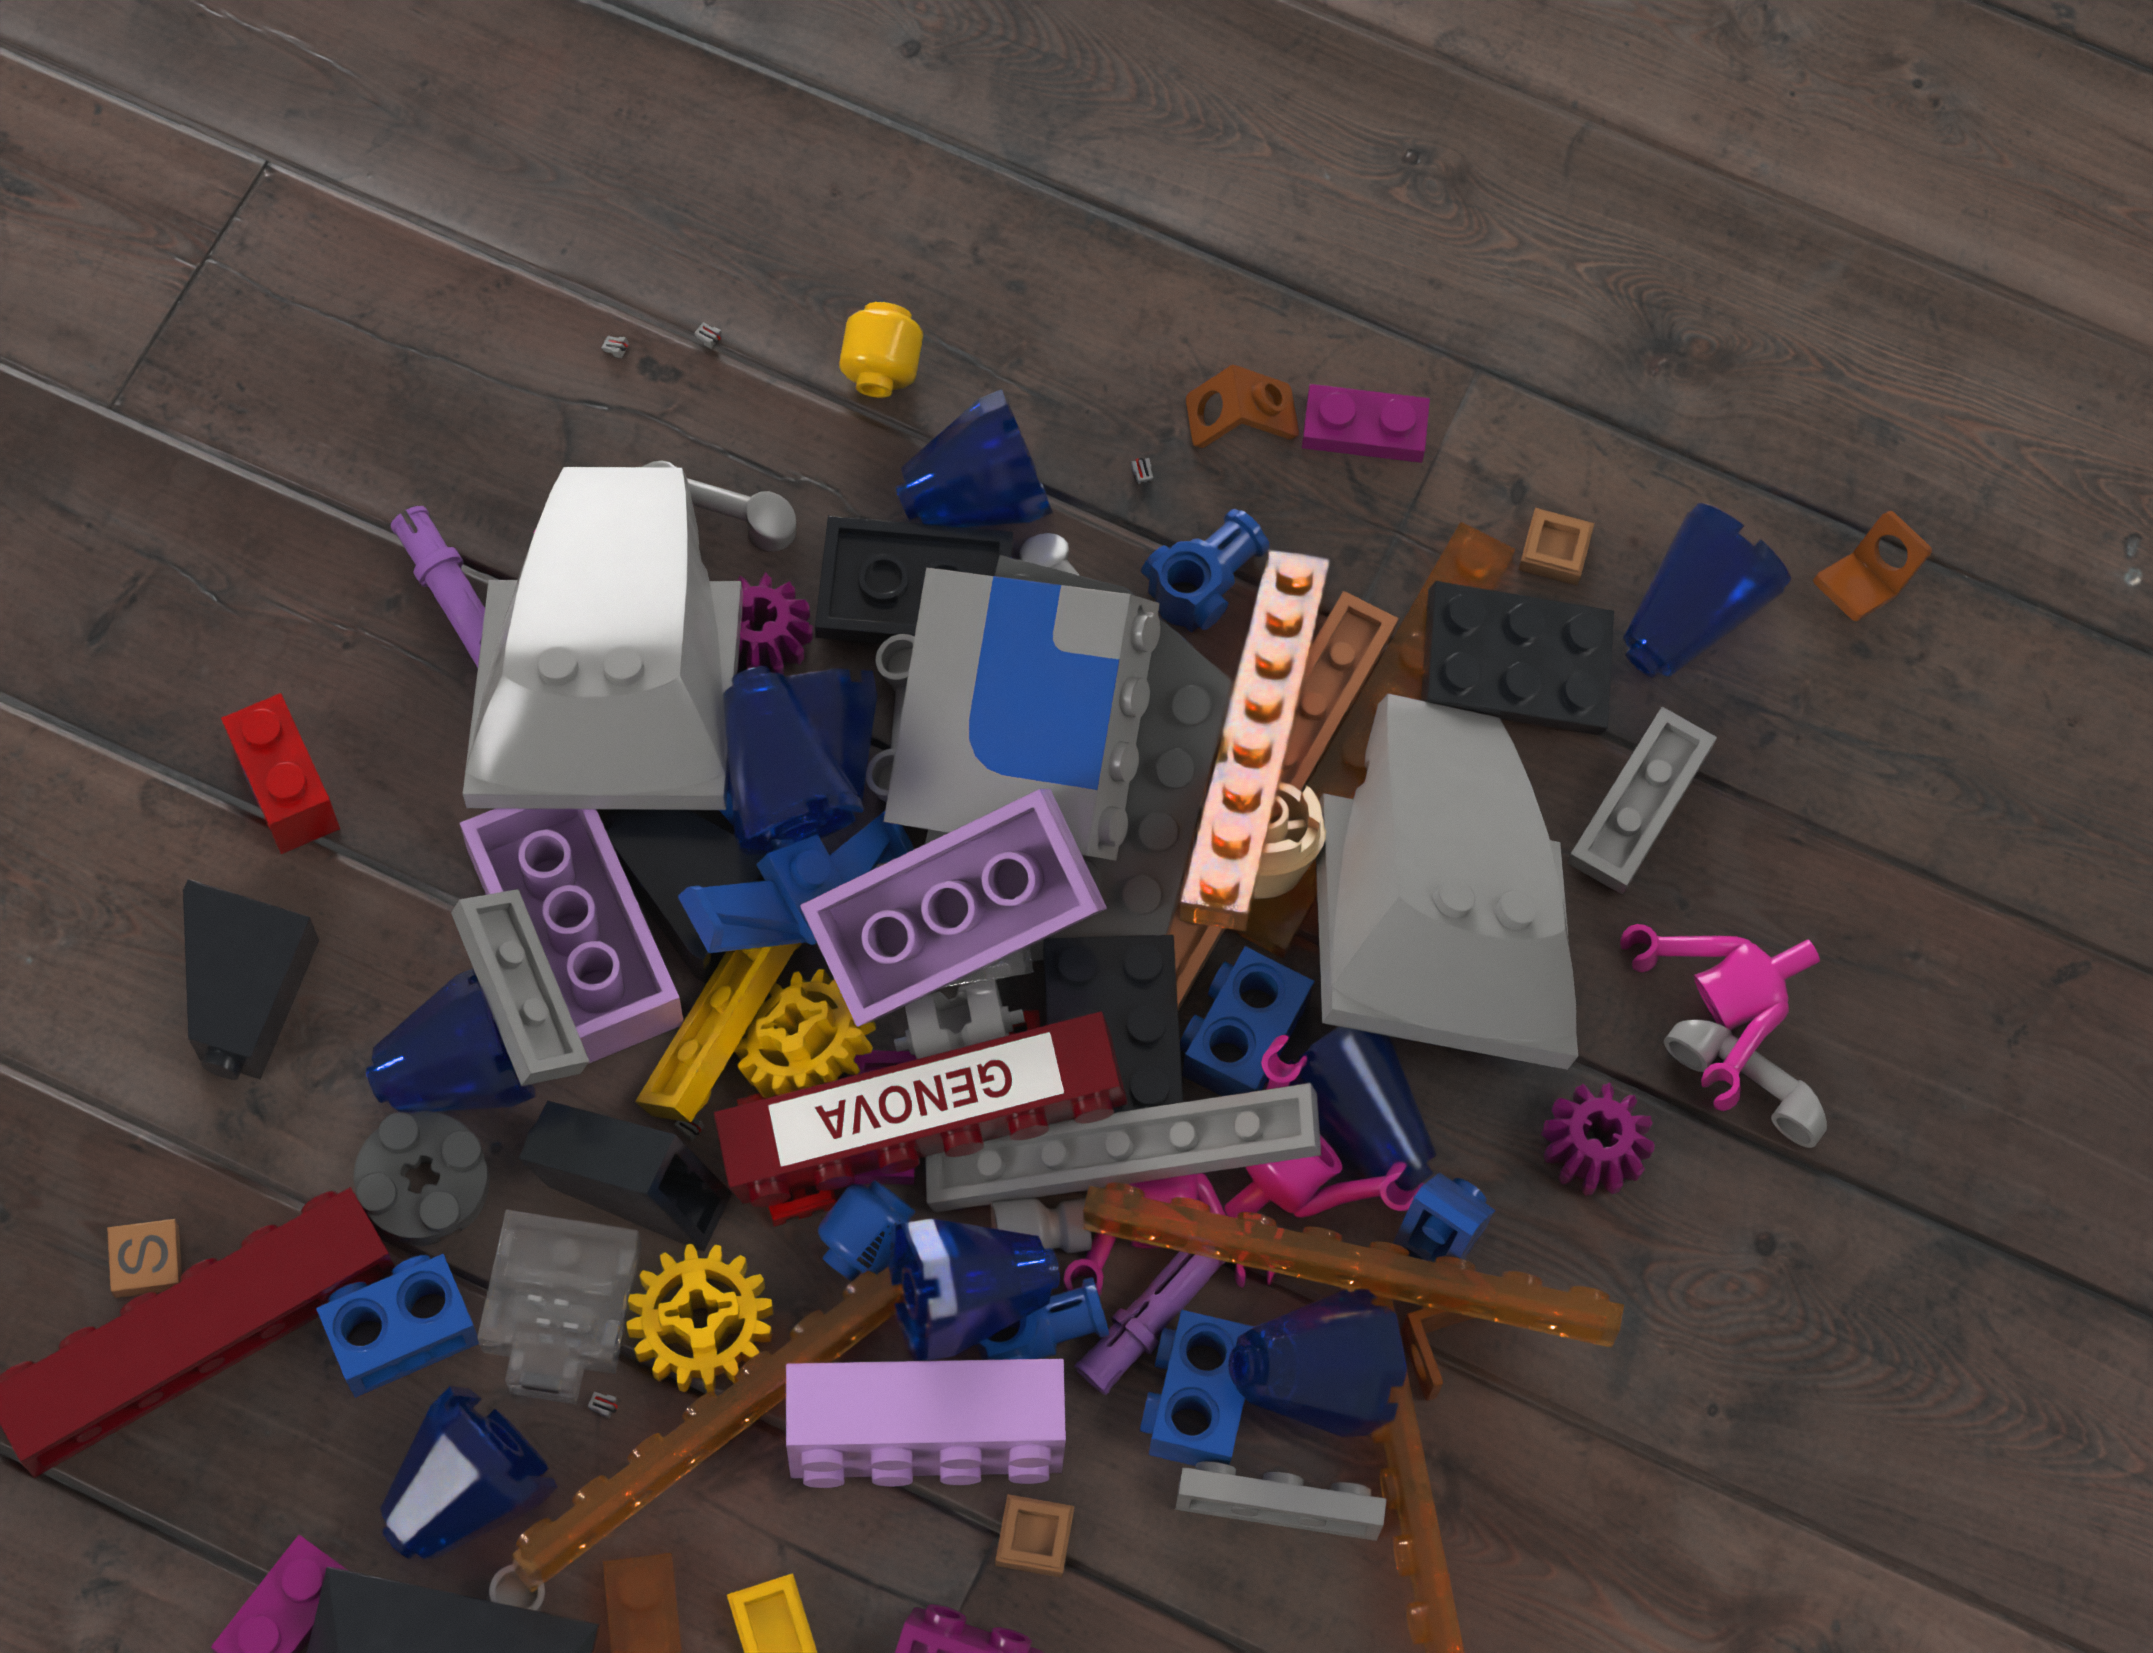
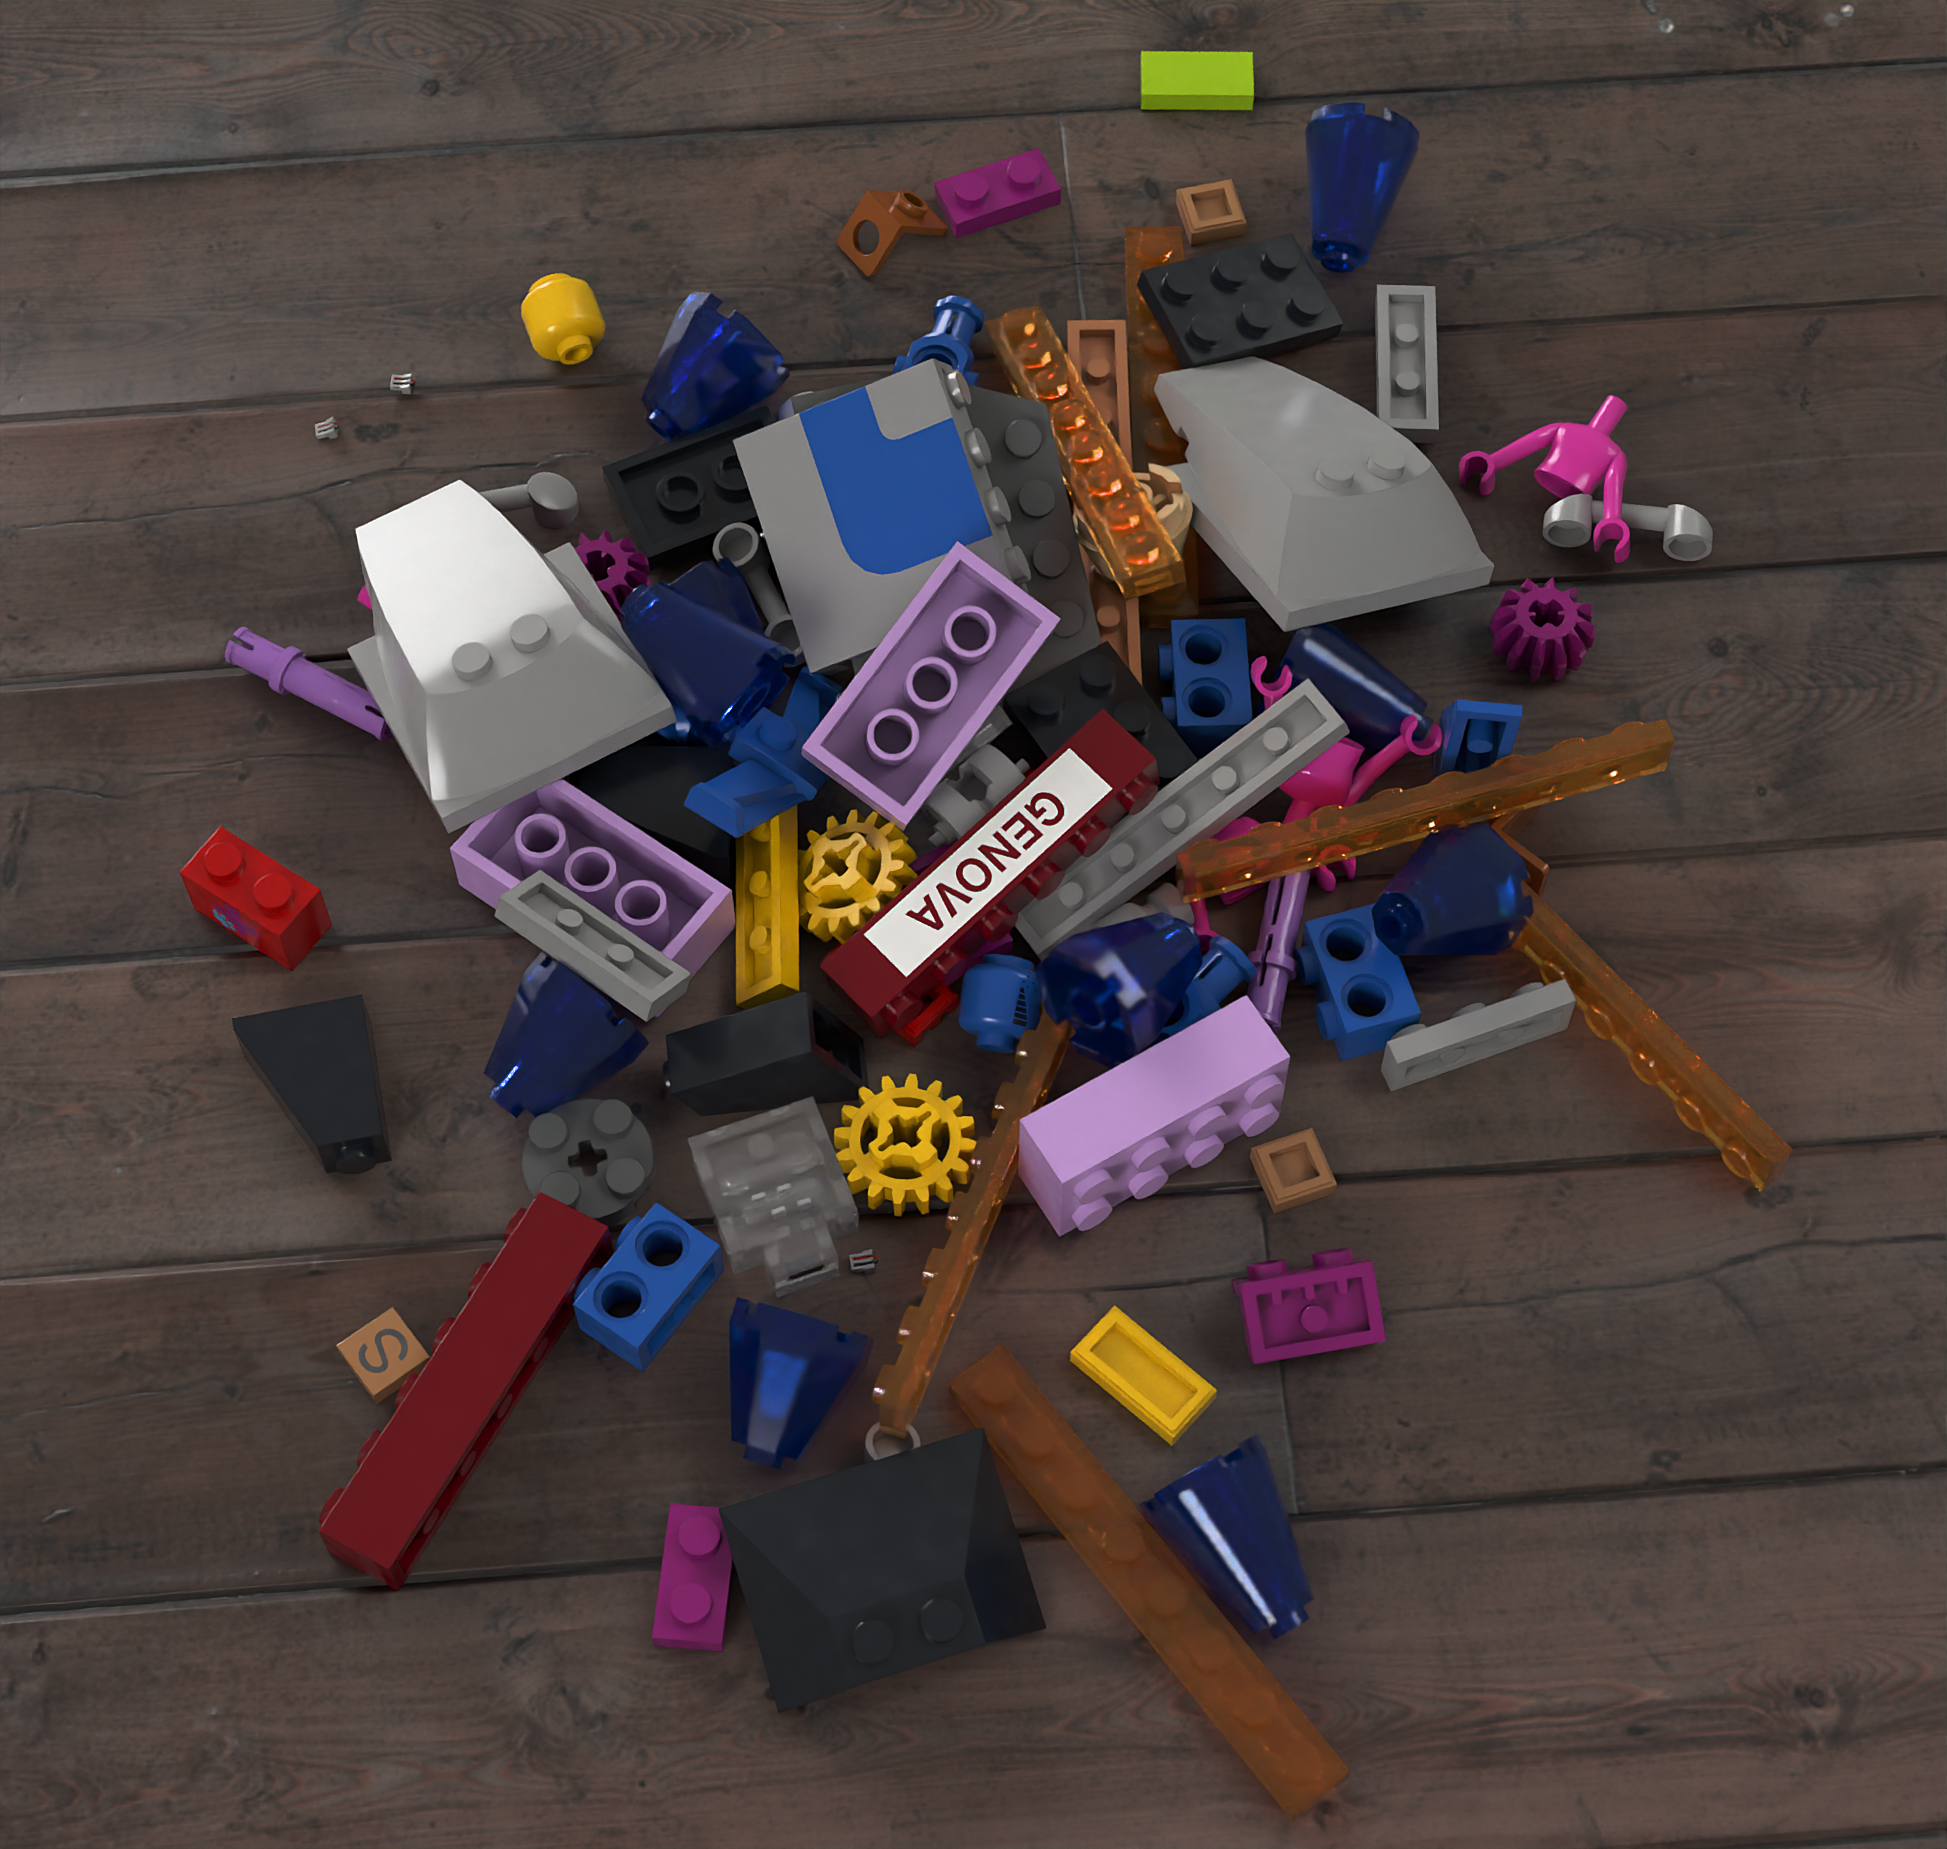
camera: 25 degrees left, 5 degrees down
(1142, 470) = (837, 314): light grey piece -> none
(1627, 403) = (1196, 80): none -> lime tile
(1863, 579) = (1468, 121): dark orange bracket -> none

